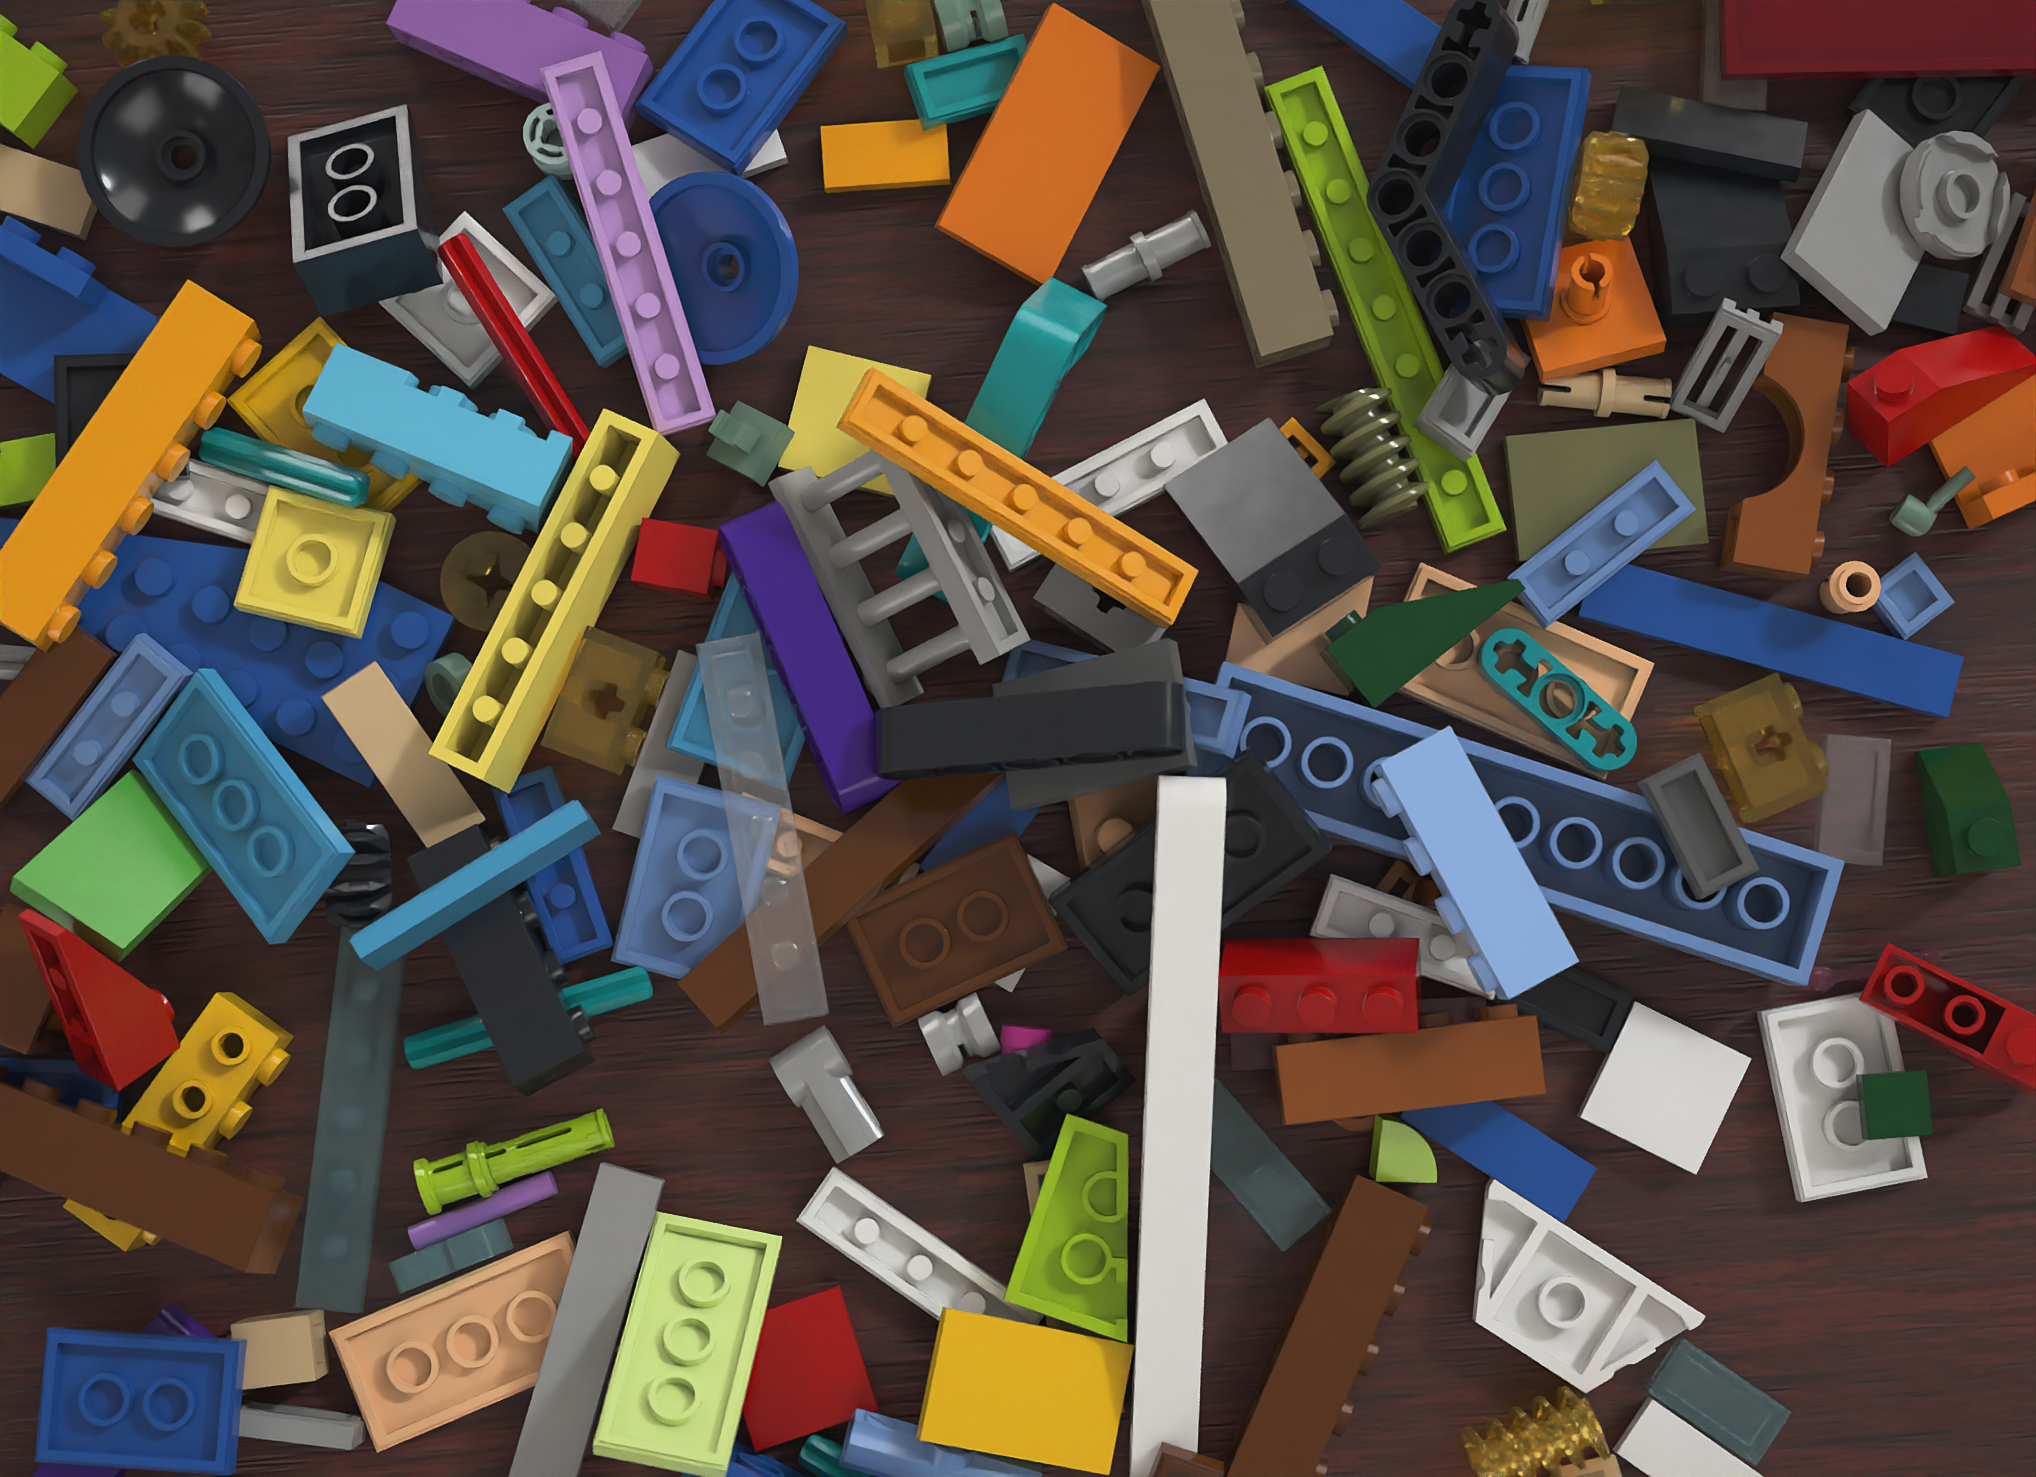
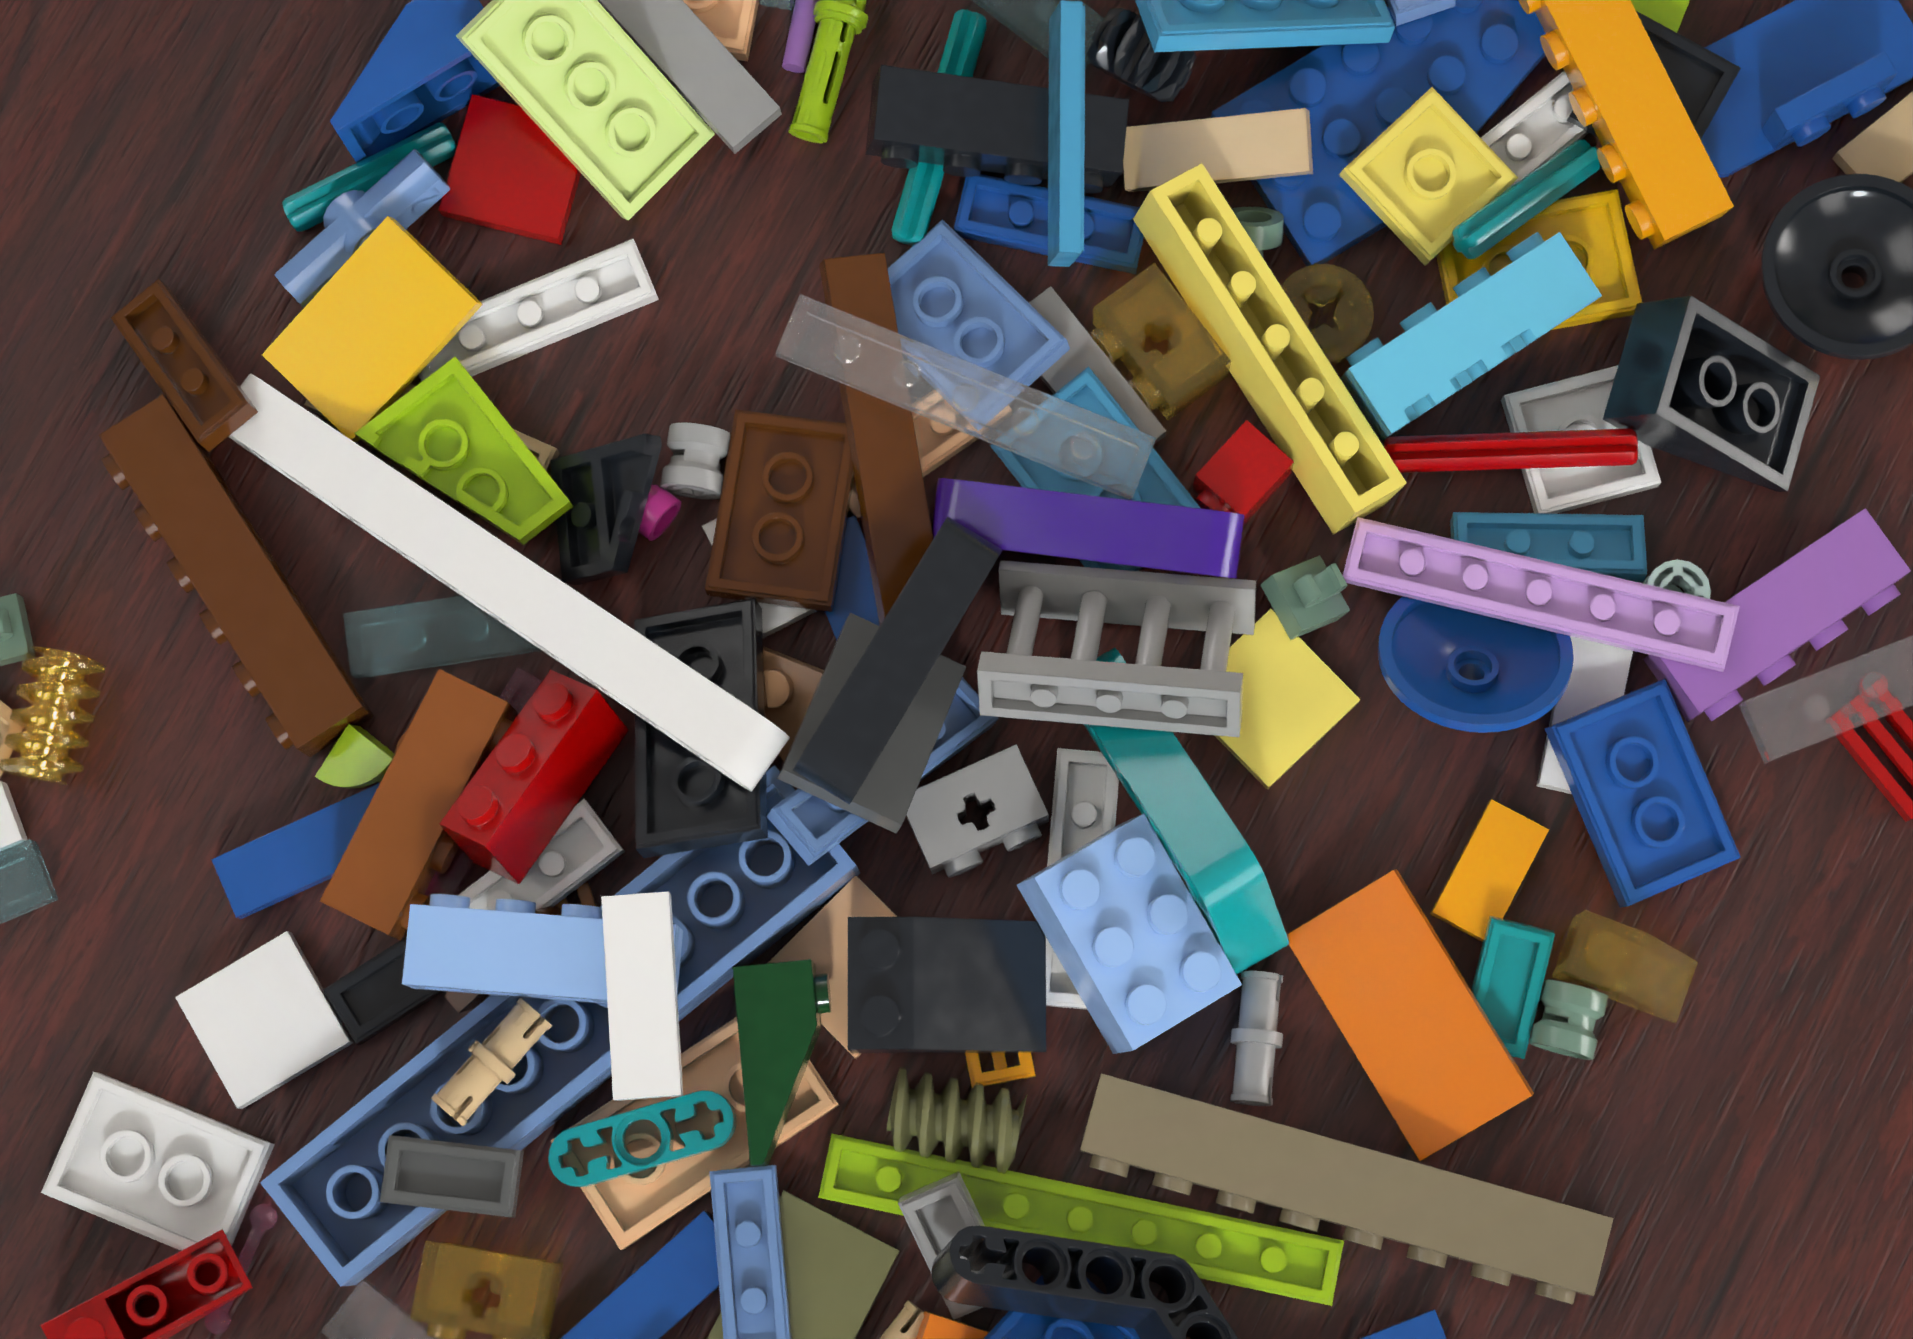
camera: 130 degrees right, 5 degrees down
(820, 1082) = (736, 325): light grey piece -> none
(1017, 498) = (1102, 770): light orange tile -> none
(1132, 404) = (1129, 935): none -> light blue brick
(1459, 749) = (642, 996): none -> white tile
(1565, 1295) = (151, 823): white wing -> none
(1587, 852) = (491, 1062): none -> tan pin
(1894, 1104) = (117, 1201): dark green tile -> none

